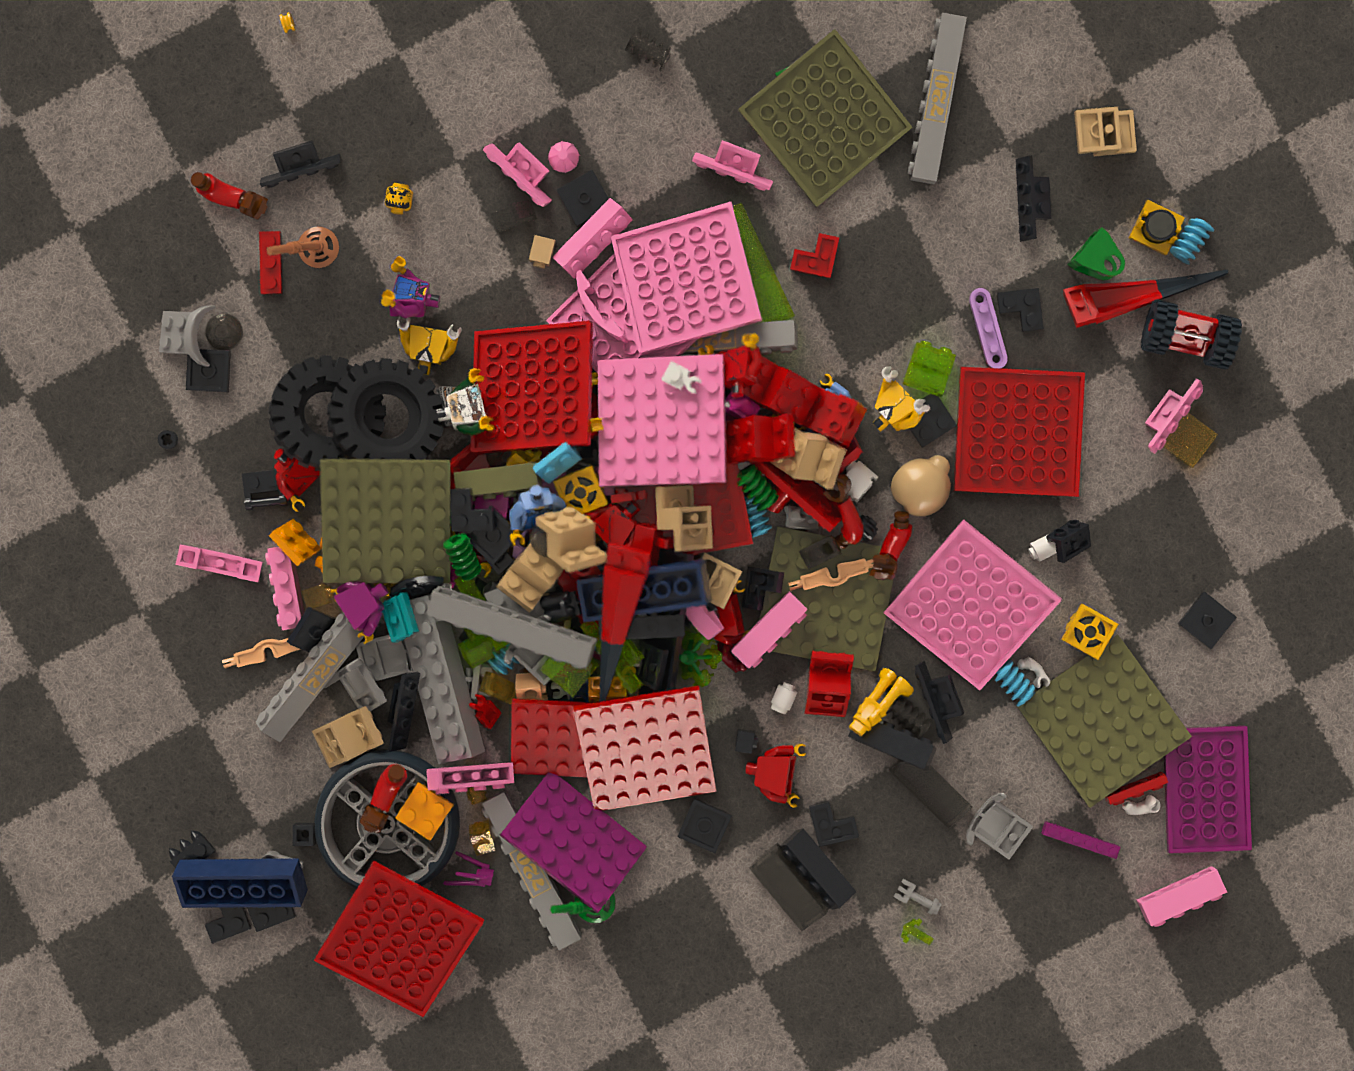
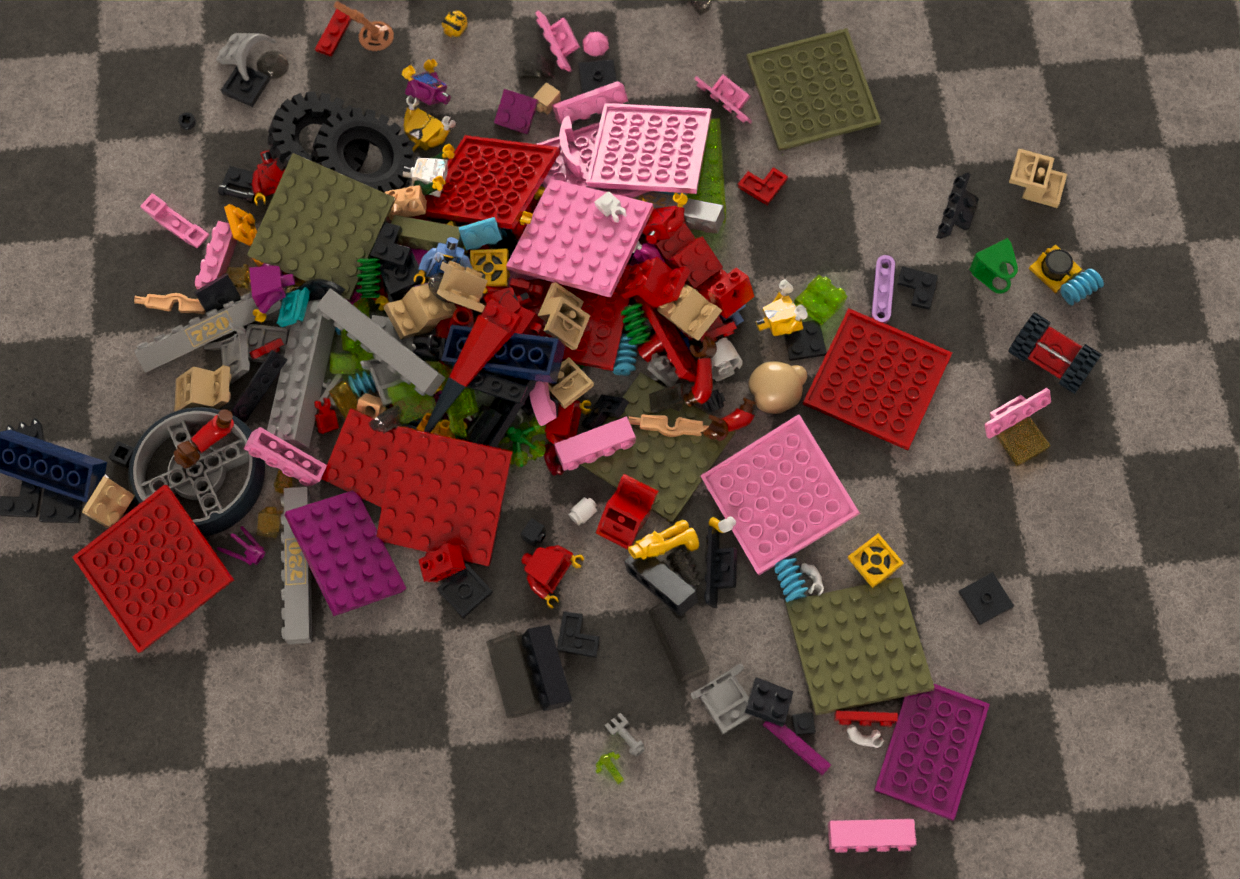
camera: 25 degrees right, 20 degrees down
(322, 898) = (108, 503): none -> tan bracket
(391, 664) = (266, 348): none -> red plate
(424, 811) = (231, 466): light orange plate -> none
(459, 450) = (408, 202): none -> light nougat brick
(517, 281) = (516, 111): none -> magenta plate
(555, 704) = (387, 420): none -> clear smoke piece
(582, 909) = (339, 620): green dish -> none
(672, 813) = (441, 563): none -> red brick
(925, 657) = (724, 525): none -> white arm
(938, 98) = (909, 109): light grey brick -> none
(1040, 812) = (769, 702): none -> black plate
(1042, 549) = (862, 478): white brick -> none
(1070, 539) = (888, 479): black bracket -> none
(1079, 816) = (803, 723): none -> black plate
(1108, 300) = (988, 304): red plate -> none

